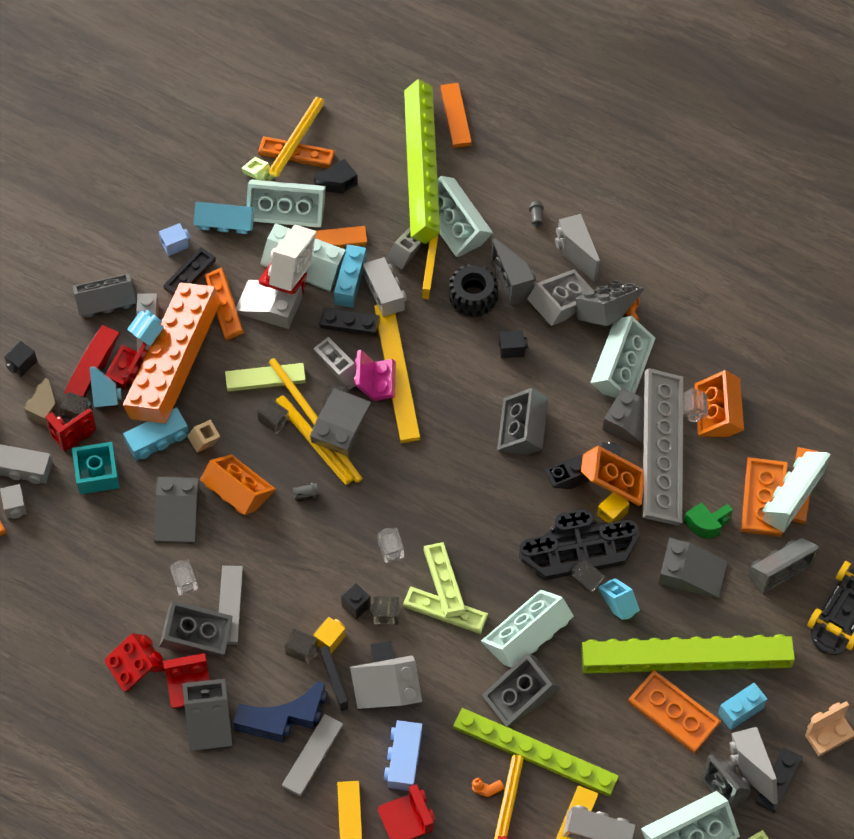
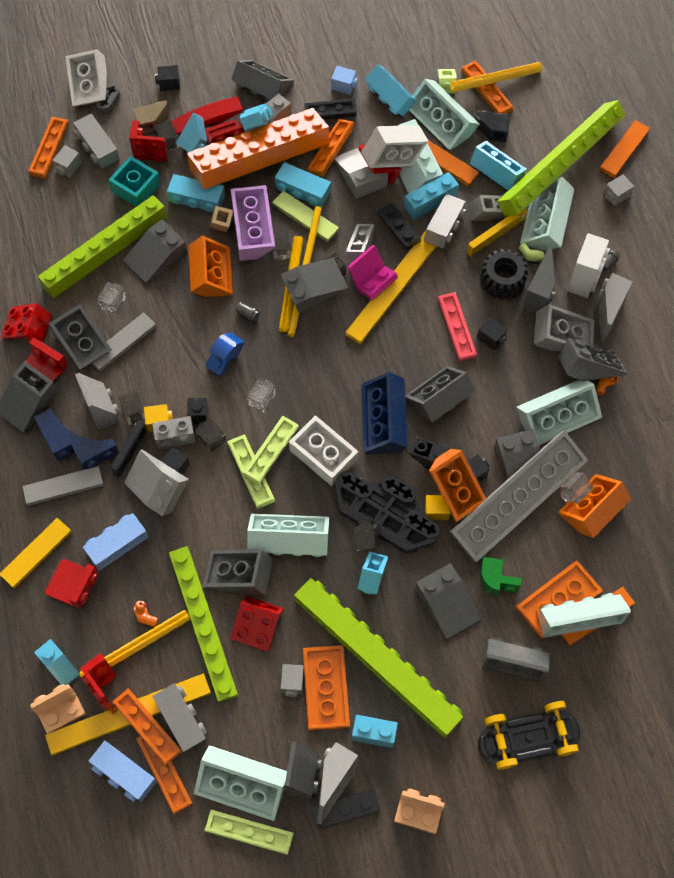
camera: 45 degrees right, 5 degrees up
(128, 544) = (102, 247): none -> lime brick
(233, 416) = (252, 222): none -> lavender slope
(237, 353) = (302, 185): none -> medium azure brick
(271, 666) = (98, 401): none -> light grey slope
(326, 539) = (223, 350): none -> blue brick
(356, 634) = (173, 432): none -> light grey brick
(377, 208) = (497, 165): none -> medium azure brick
(475, 258) = (531, 255): none -> yellowish green arm
(478, 362) = (457, 327): none -> coral tile
(487, 152) = (618, 190): none -> light grey brick
(487, 542) = (323, 450): none -> white brick
(499, 476) = (384, 414): none -> dark blue slope
(533, 229) = (589, 265): none -> white brick
(576, 713) = (256, 623): none -> red bracket
(646, 728) = (292, 680): none -> light grey brick

